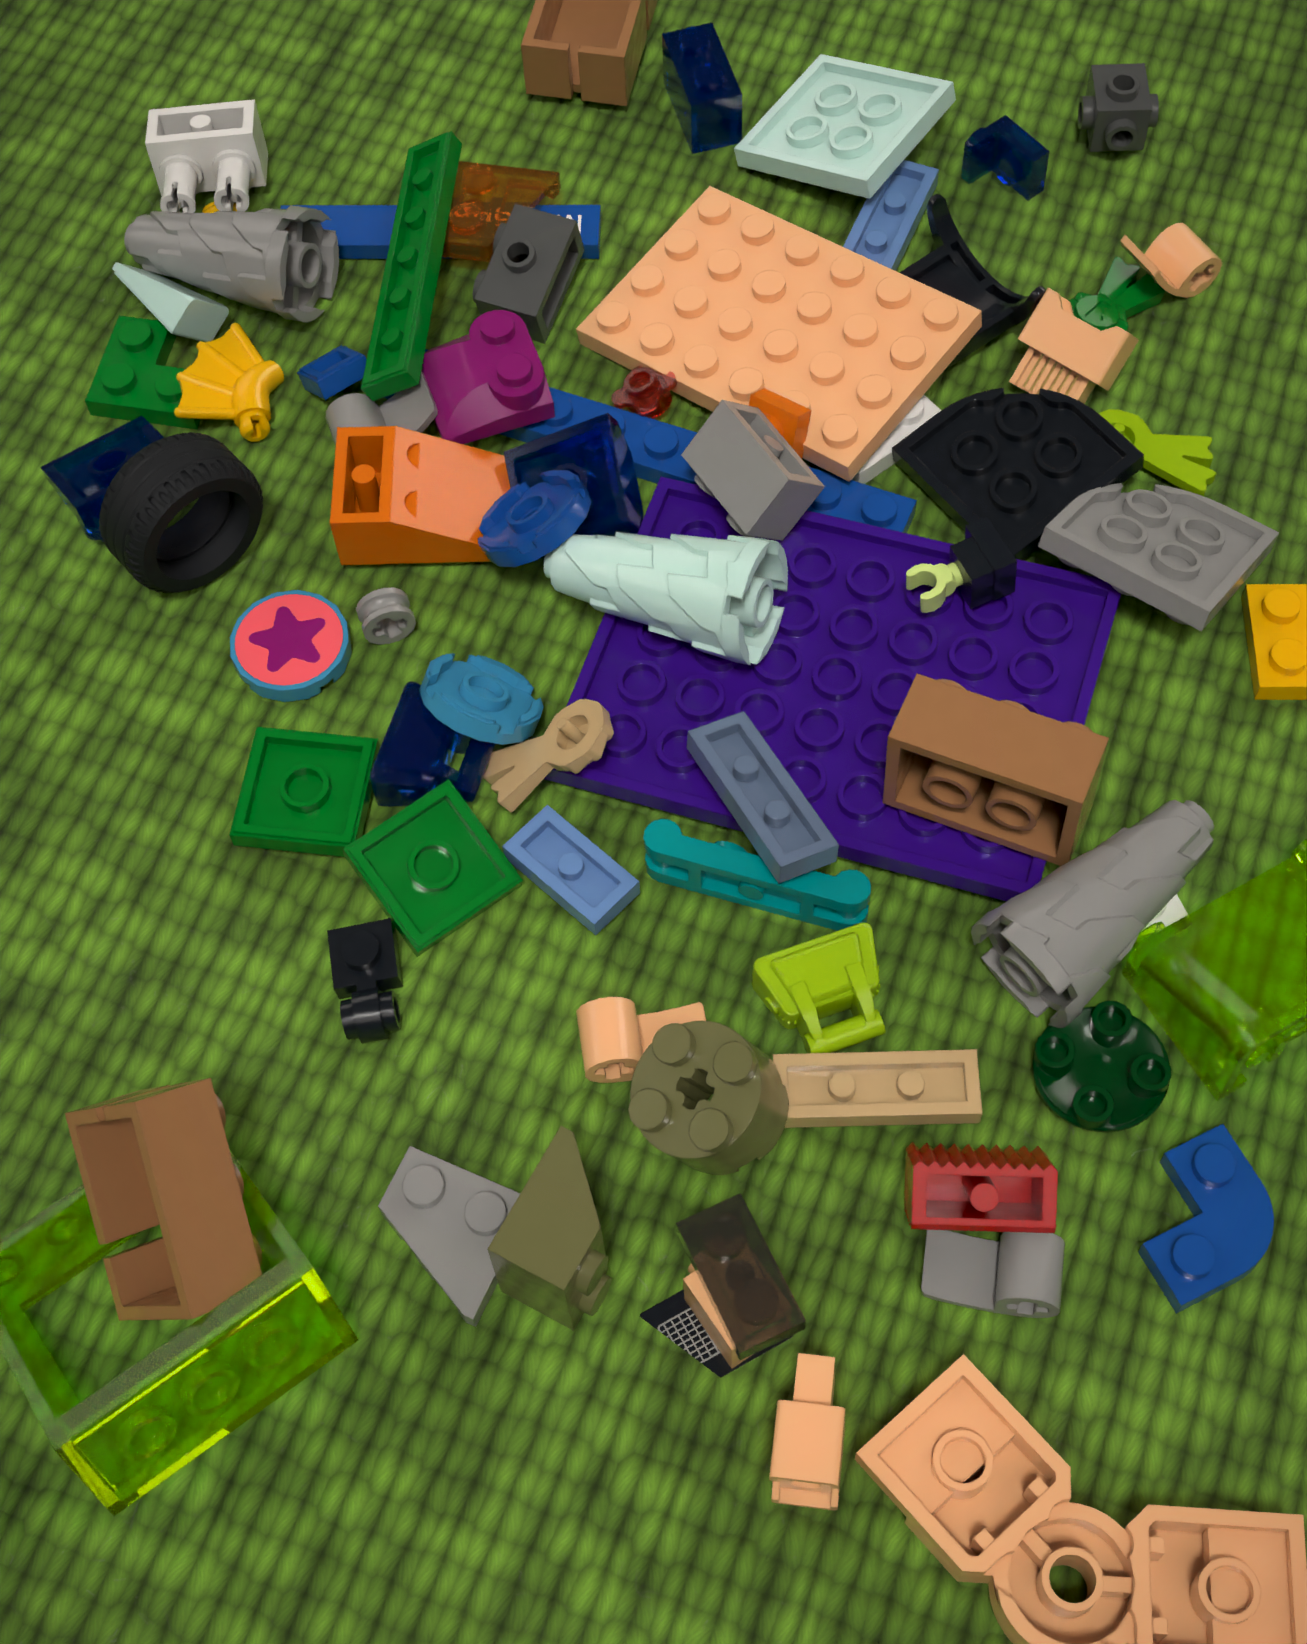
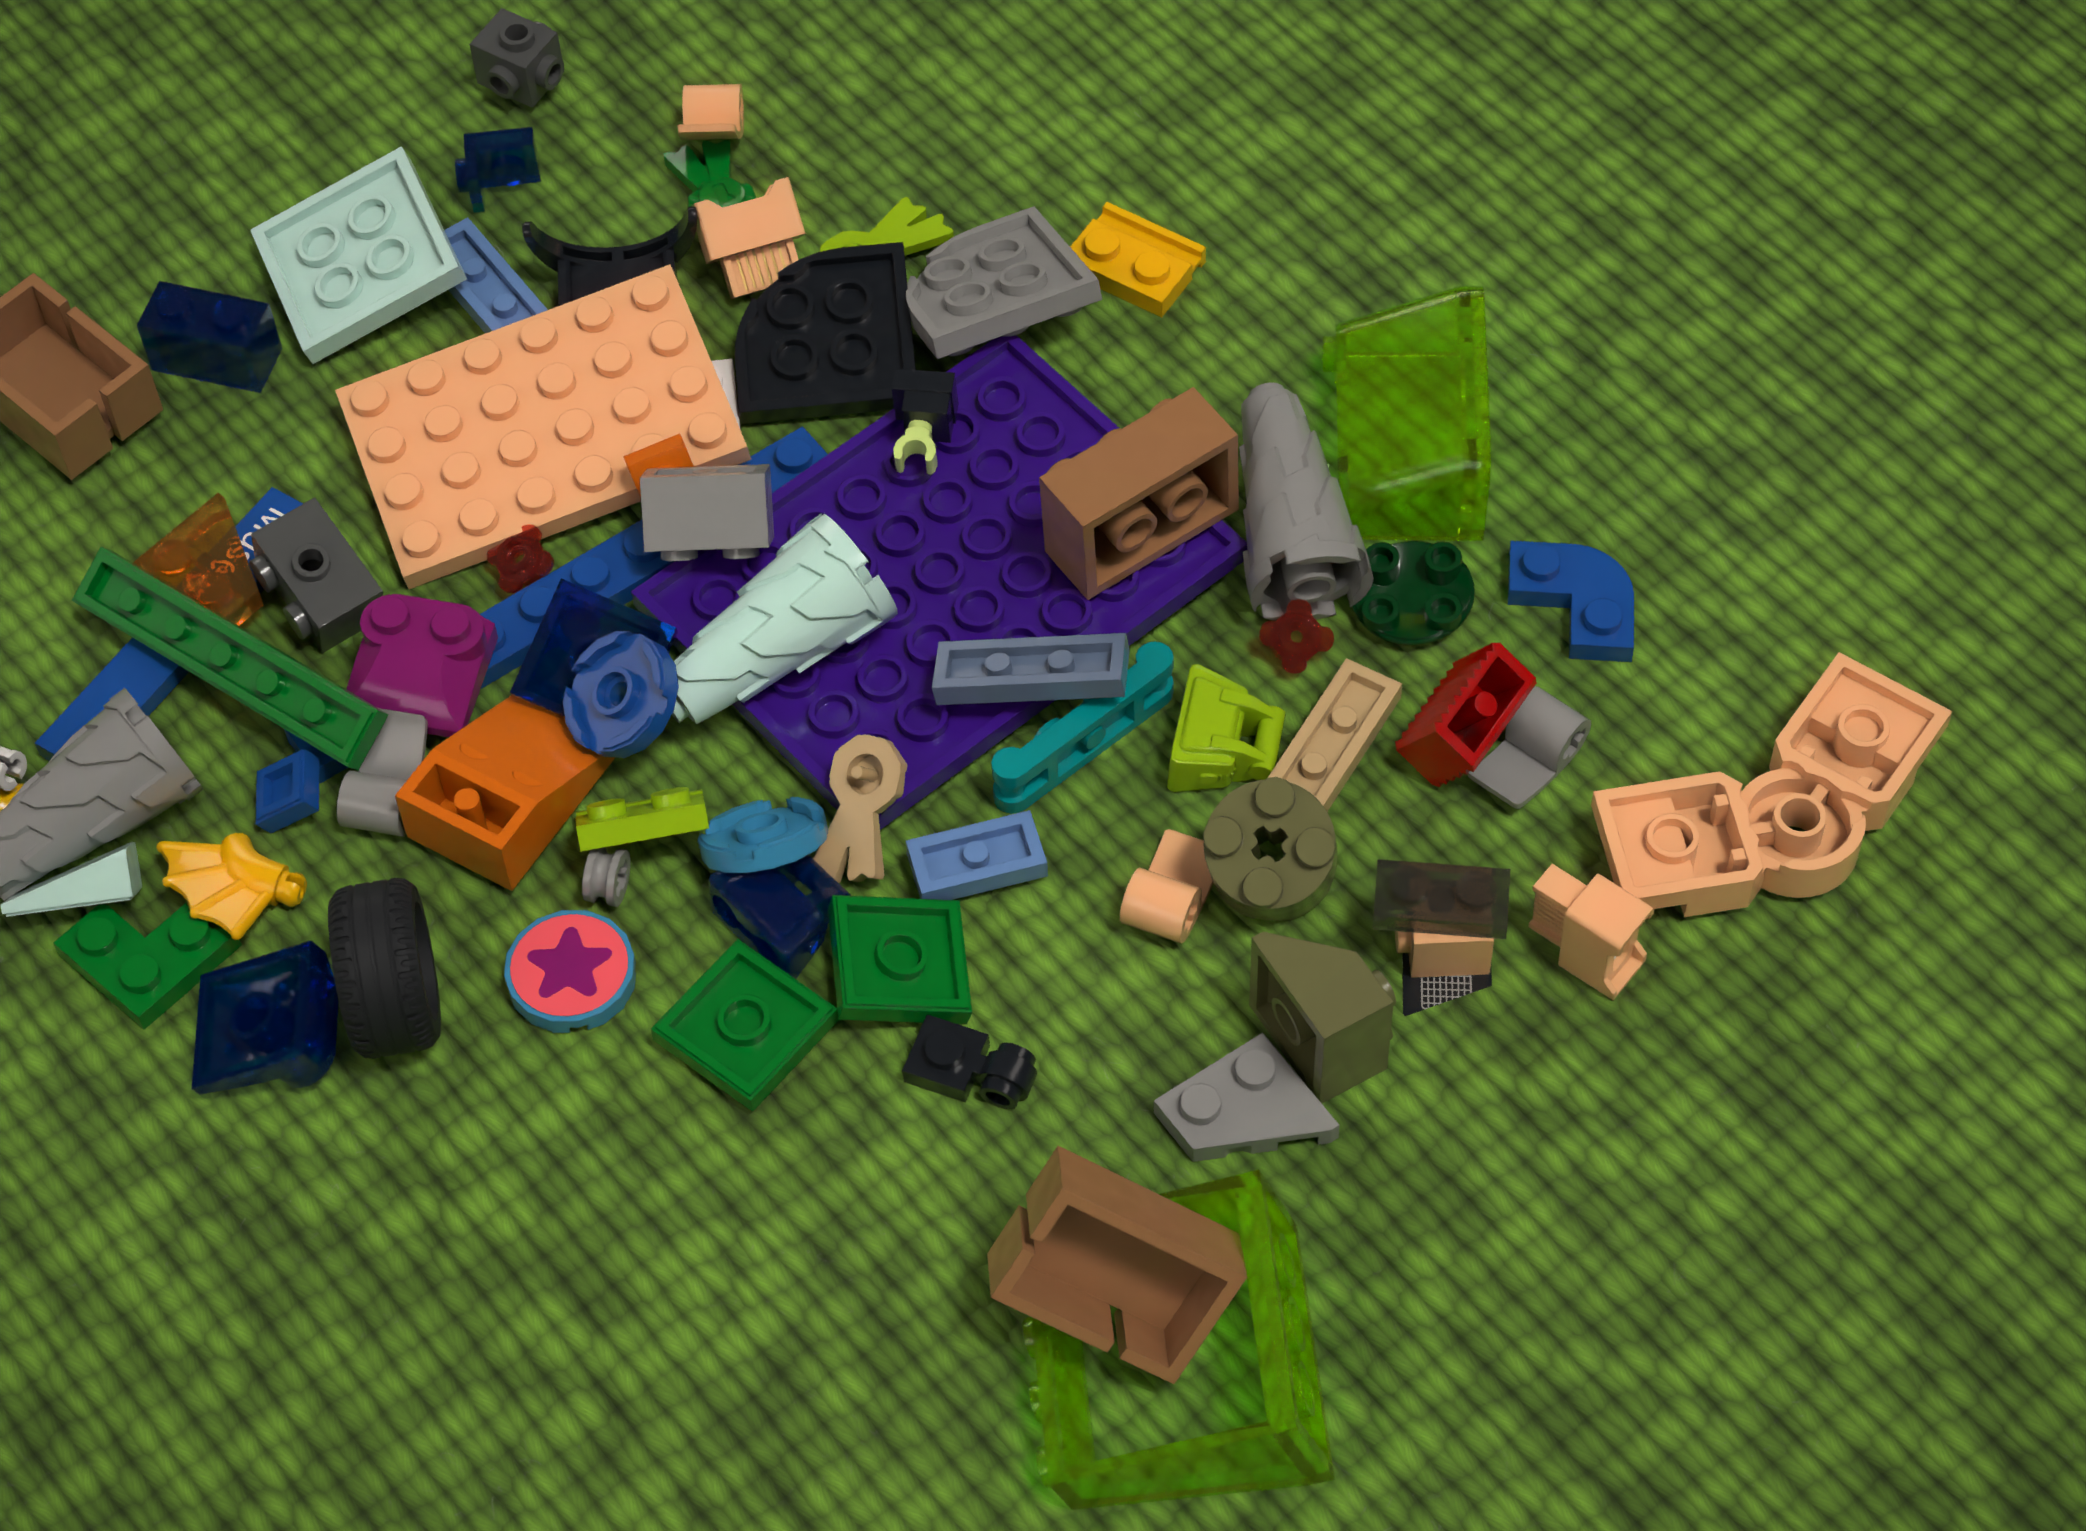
camera: 60 degrees left, 5 degrees down
(444, 607) = (618, 823): none -> lime plate
(991, 986) = (1296, 654): none -> clear red plate

